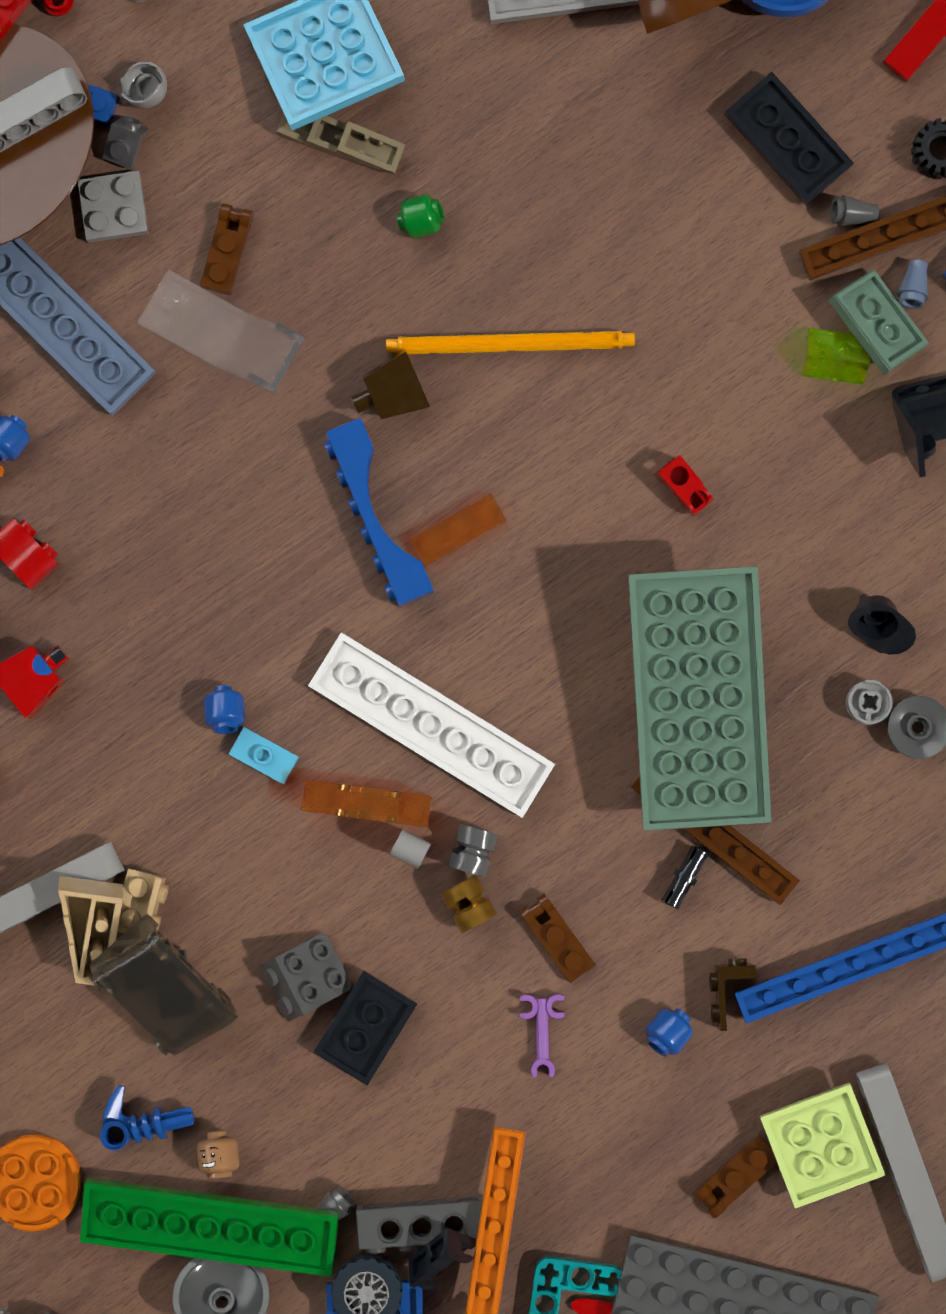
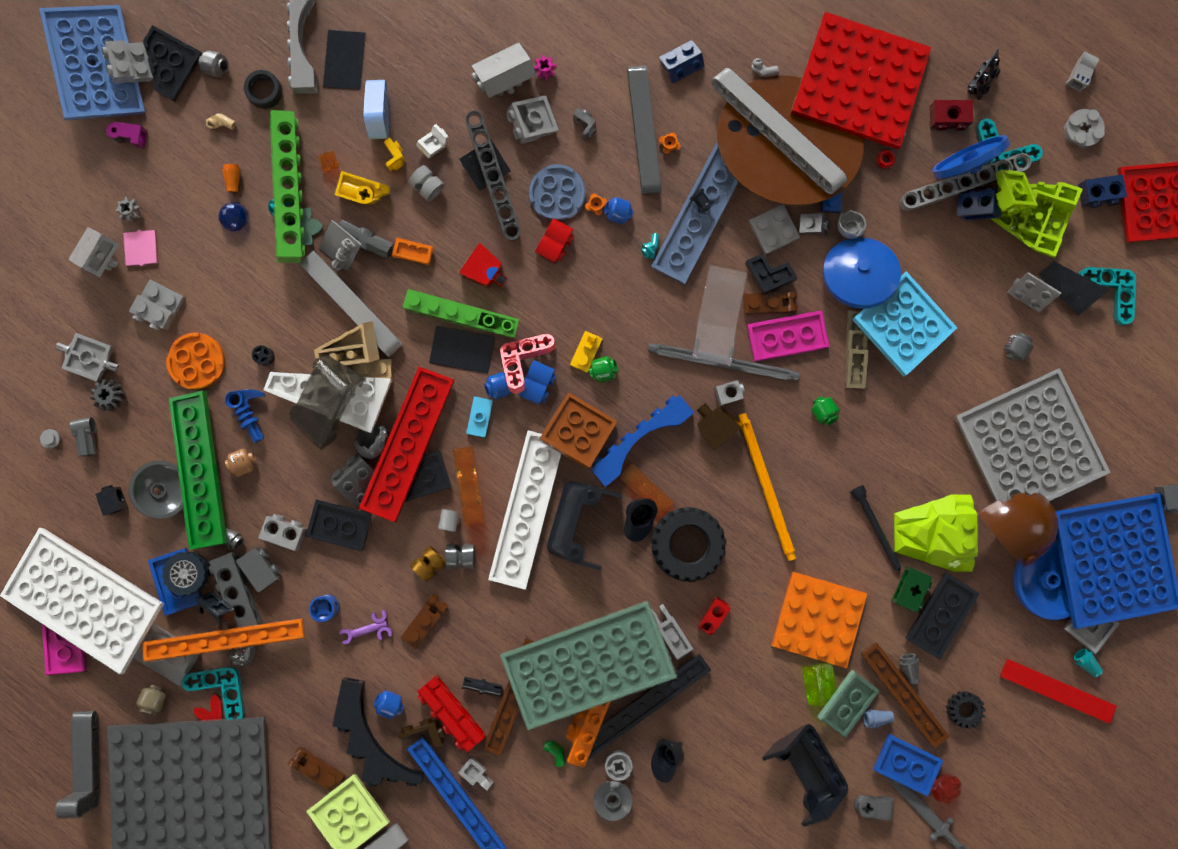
camera: 70 degrees right, 0 degrees up
(33, 303) = (702, 201): none -> black bush
(54, 1075) = (259, 353): none -> black wheel
(83, 410) = (648, 249): none -> teal plate
(91, 736) = (460, 314): none -> bright green slope
(148, 752) = (462, 349): none -> black piece
(187, 240) = (768, 278): none -> black plate
(188, 670) = (515, 357): none -> coral beam
(195, 935) = (362, 408): none -> white wing
(213, 558) = (586, 351): none -> yellow plate
(224, 93) = (861, 272): none -> blue dish
(237, 648) = (537, 381): none -> blue brick
(249, 538) = (603, 369): none -> green head
(249, 937) = (371, 444): none -> dark grey hair
(271, 881) = (407, 444): none -> red plate
(287, 237) = (788, 336): none -> dark pink tile
(307, 329) = (736, 364): none -> dark grey piece
(329, 880) = (430, 477): none -> black plate
(333, 606) = (578, 430): none -> dark orange plate
(347, 368) = (721, 395): none -> light grey brick
(356, 1124) = (282, 536): none -> light grey brick
(395, 1174) = (259, 569): none -> dark grey brick
(465, 666) = (566, 519): none -> black windscreen
(488, 1088) = (324, 608): none -> blue wheel
(499, 552) = (639, 519): none -> black piece
(523, 1240) = (242, 656): none -> dark grey head
(566, 204) = (859, 494): none -> black piece
(566, 447) = (714, 538): none -> black tyre
(662, 103) = (939, 533): none -> lime wedge
(696, 555) = (673, 634): none -> light grey hinge
(711, 937) = (451, 713): none -> red brick
(738, 327) = (819, 619): none -> orange plate
(742, 185) = (905, 597): none -> dark green brick
(756, 1075) = (362, 743): none -> black arch
(791, 640) = (649, 703): none -> black plate
(800, 738) = (583, 733): none -> orange bracket
(813, 930) = (473, 772): none -> light grey plate
(818, 791) = (556, 750): none -> green arm

